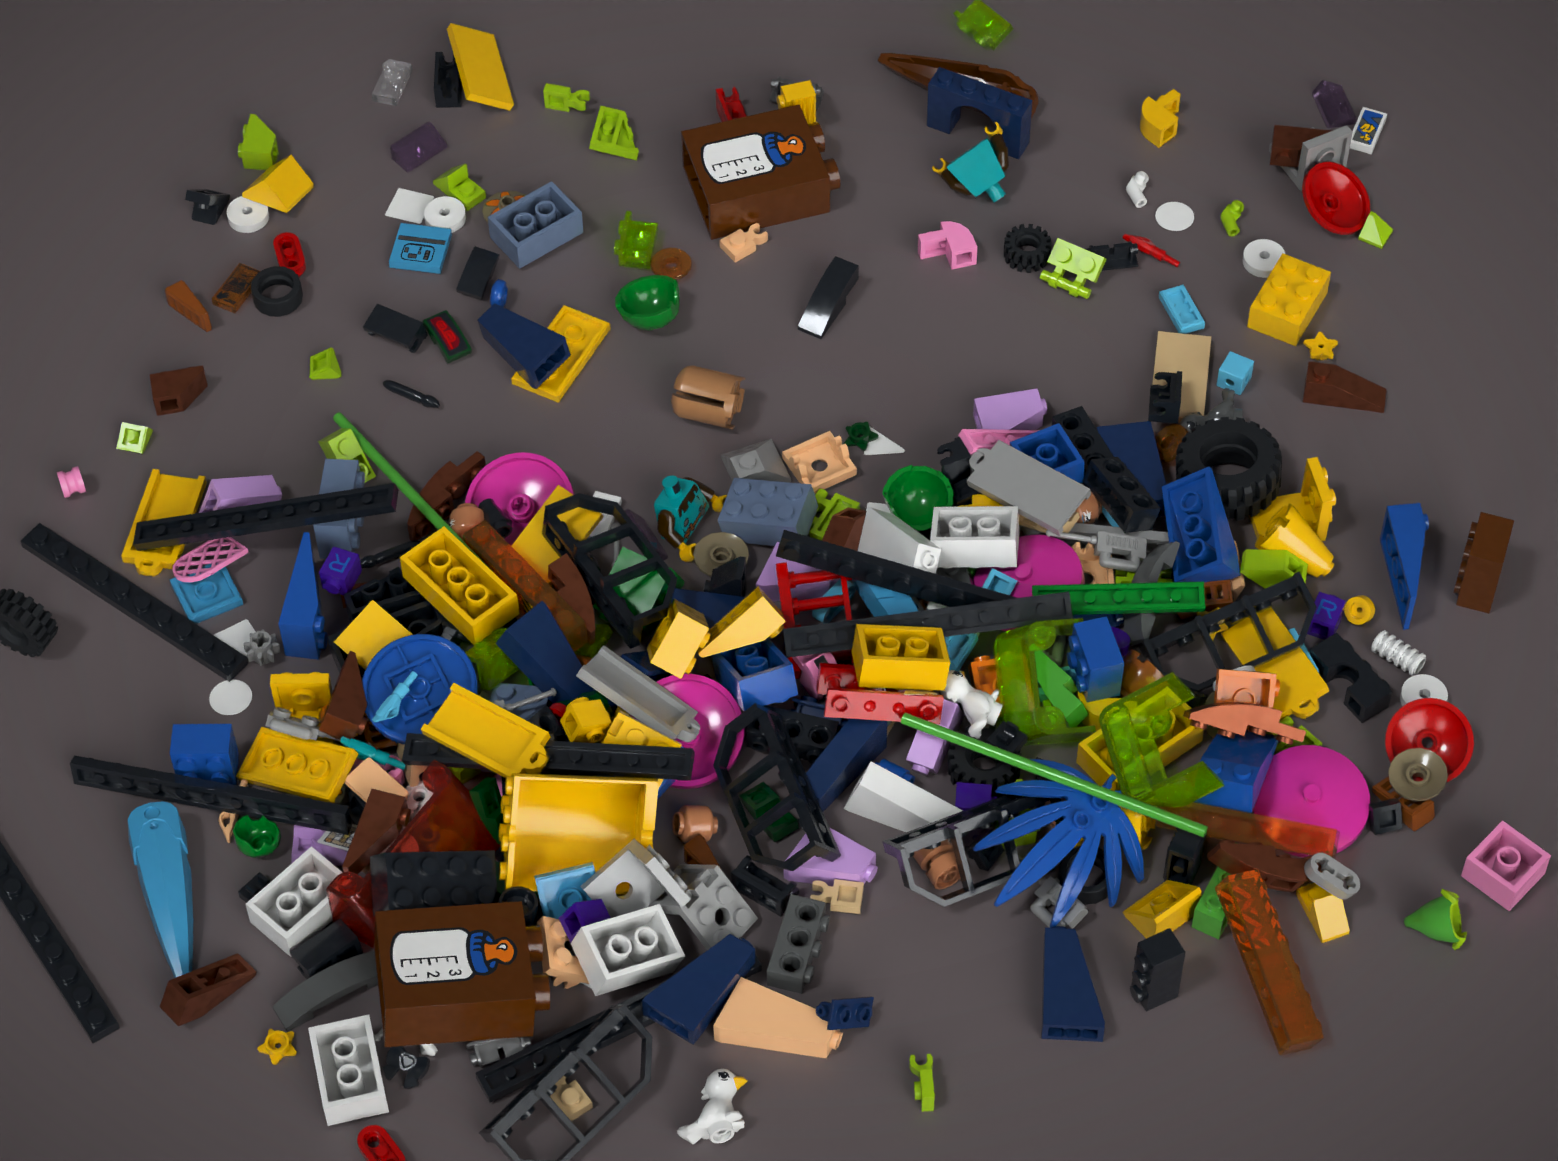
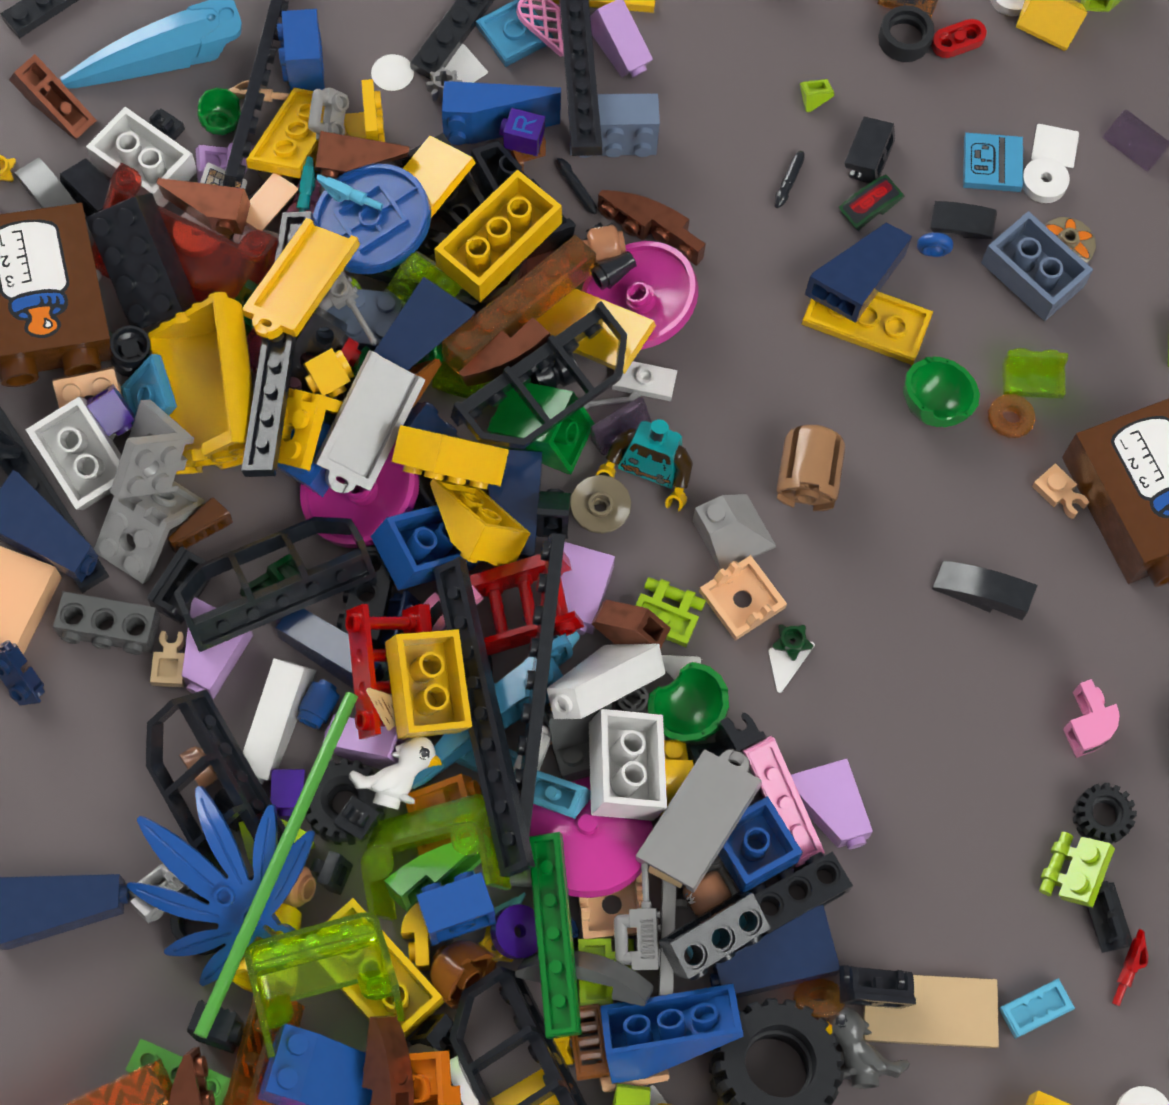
camera: 80 degrees right, 15 degrees up
(344, 445) = (691, 127): lime slope -> none
(396, 478) = (628, 193): bright green piece -> none
(458, 185) = (1086, 190): lime slope -> none
(693, 821) = (249, 509): nougat head -> none
(764, 509) = (655, 544): sand blue brick -> none
(1157, 970) = (51, 995): black brick -> none
(1164, 908) = (159, 1005): yellow slope -> none
(1235, 372) = (941, 1077): medium azure piece -> none

